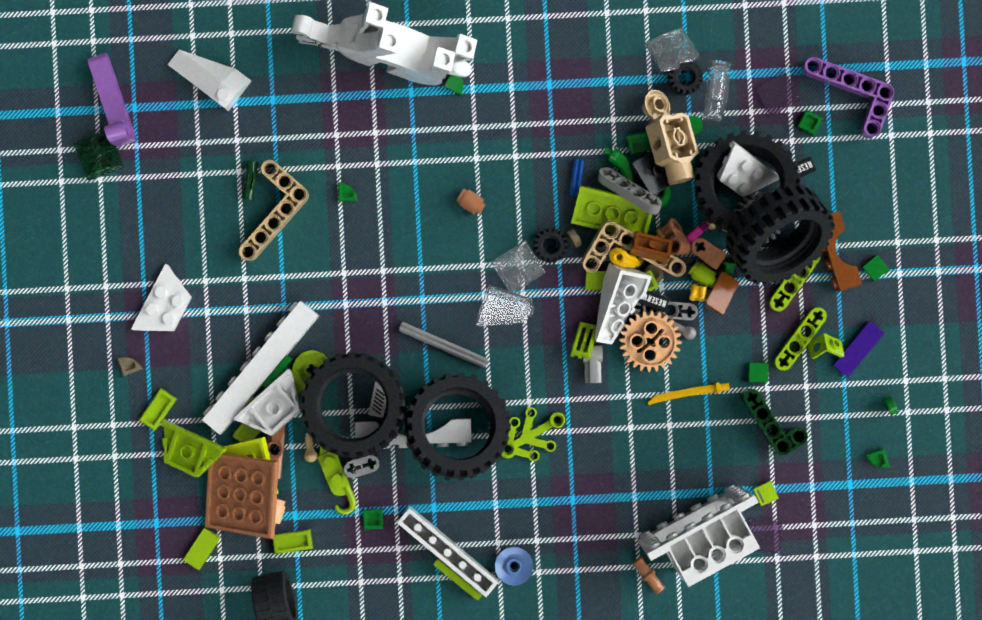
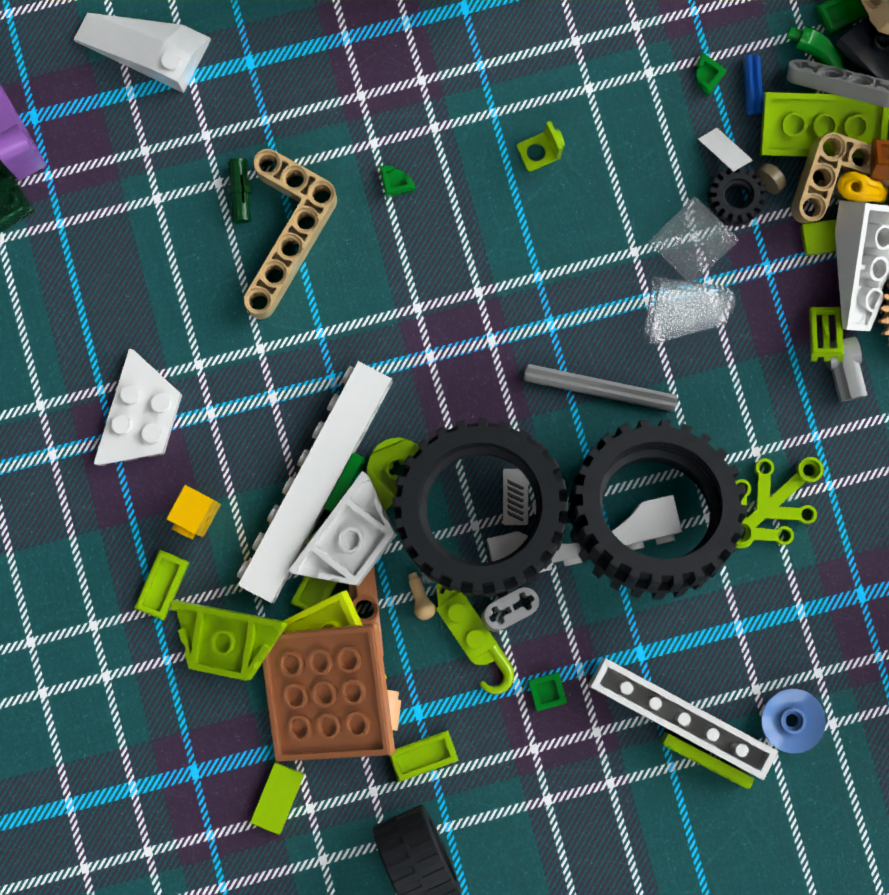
camera: 10 degrees left, 5 degrees down
(129, 365) = (101, 524): dark tan tile -> none
(184, 371) = (192, 513): none -> yellow brick
(445, 191) = (552, 143): none -> lime bracket
(471, 201) = (596, 153): nougat brick -> none
(549, 215) = (725, 149): none -> white sticker
(550, 165) = (708, 74): none -> green tile

